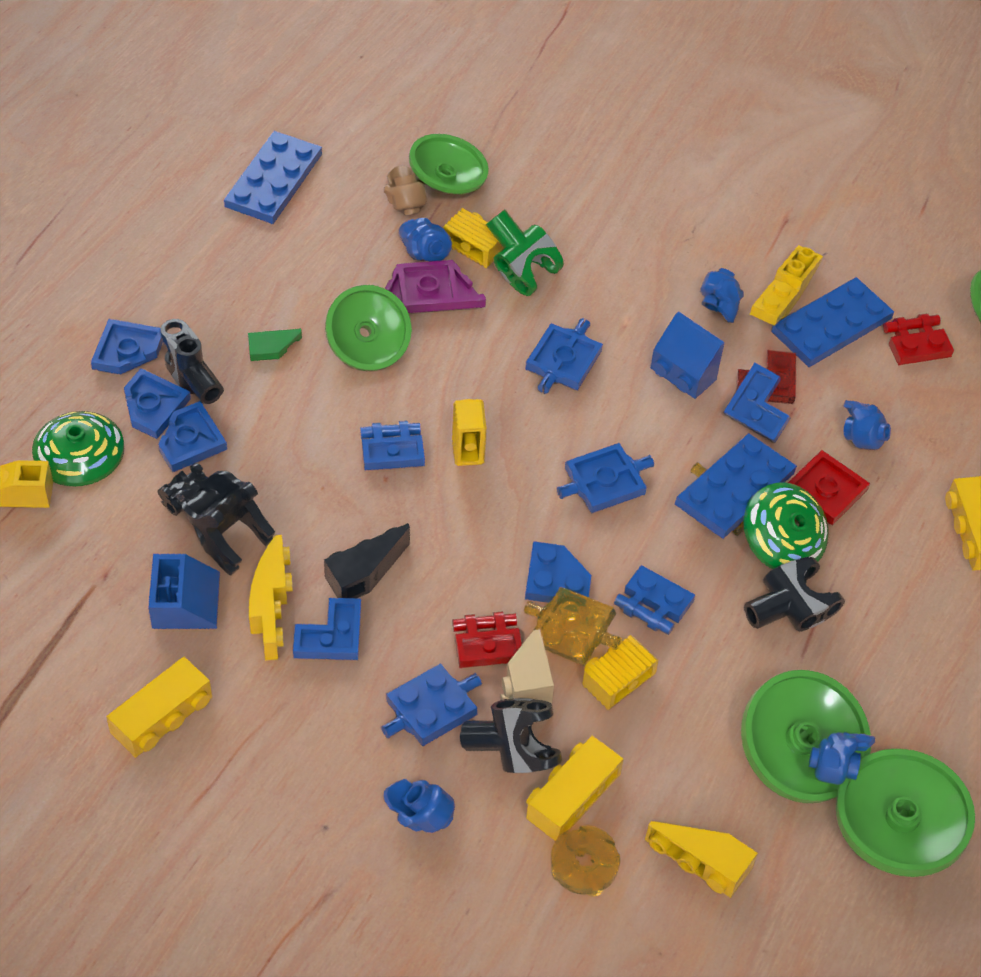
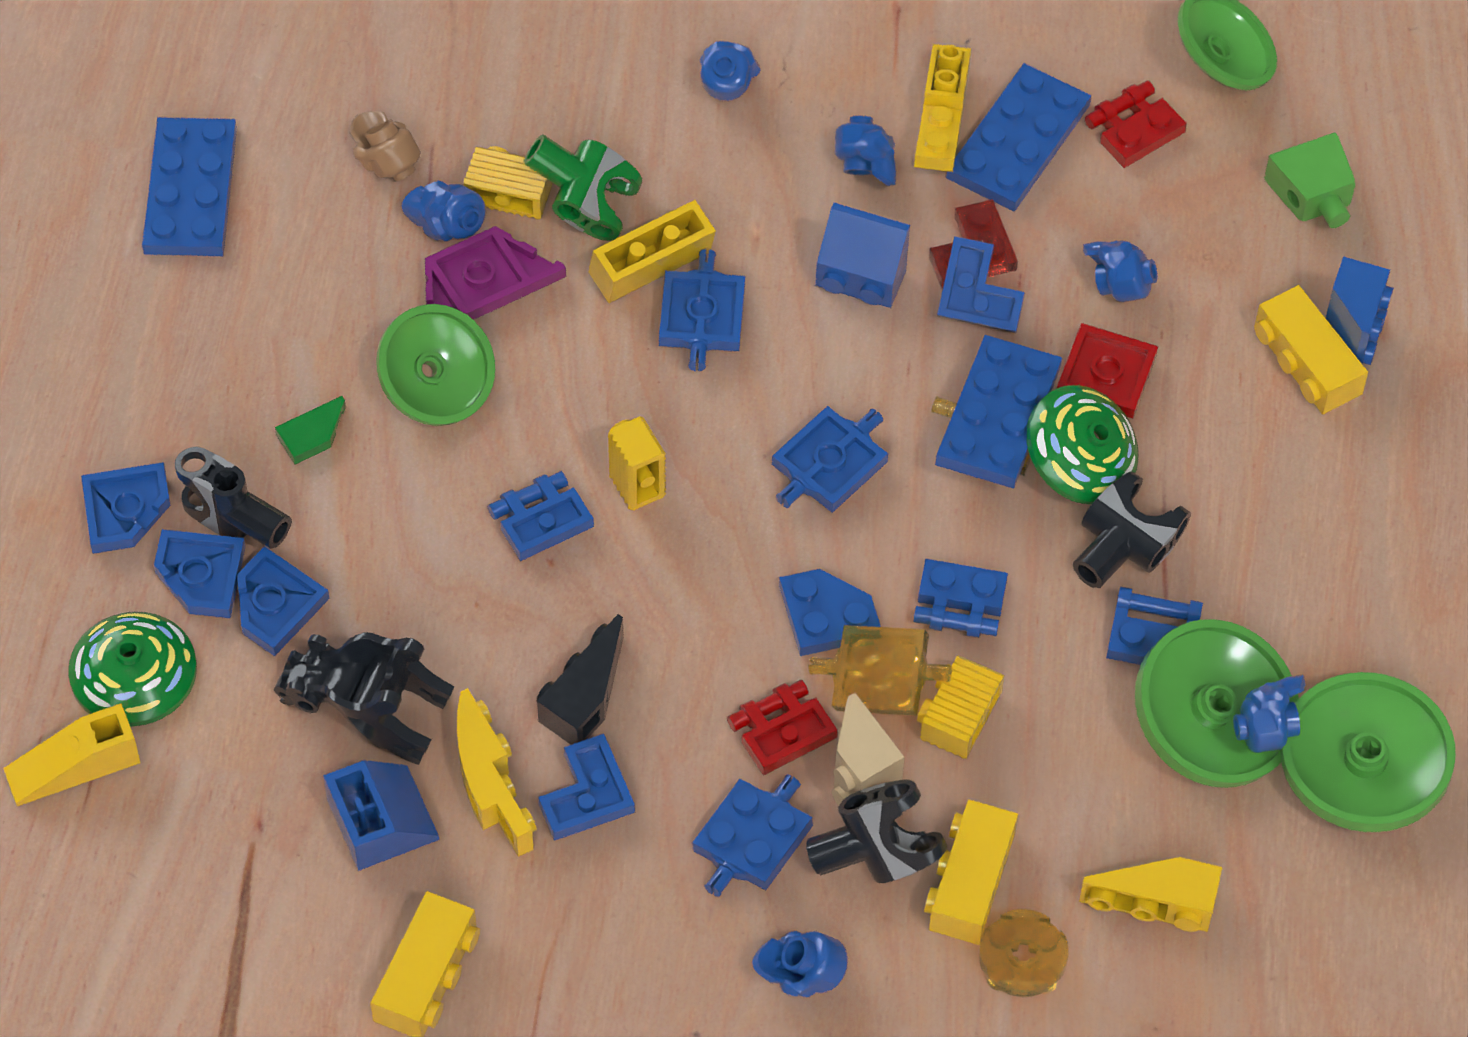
camera: 20 degrees left, 5 degrees up
(448, 163) = (425, 87): bright green dish -> none
(544, 305) = (651, 251): none -> yellow brick
(651, 216) = (727, 69): none -> blue head
(765, 667) = (1134, 637): none -> blue plate

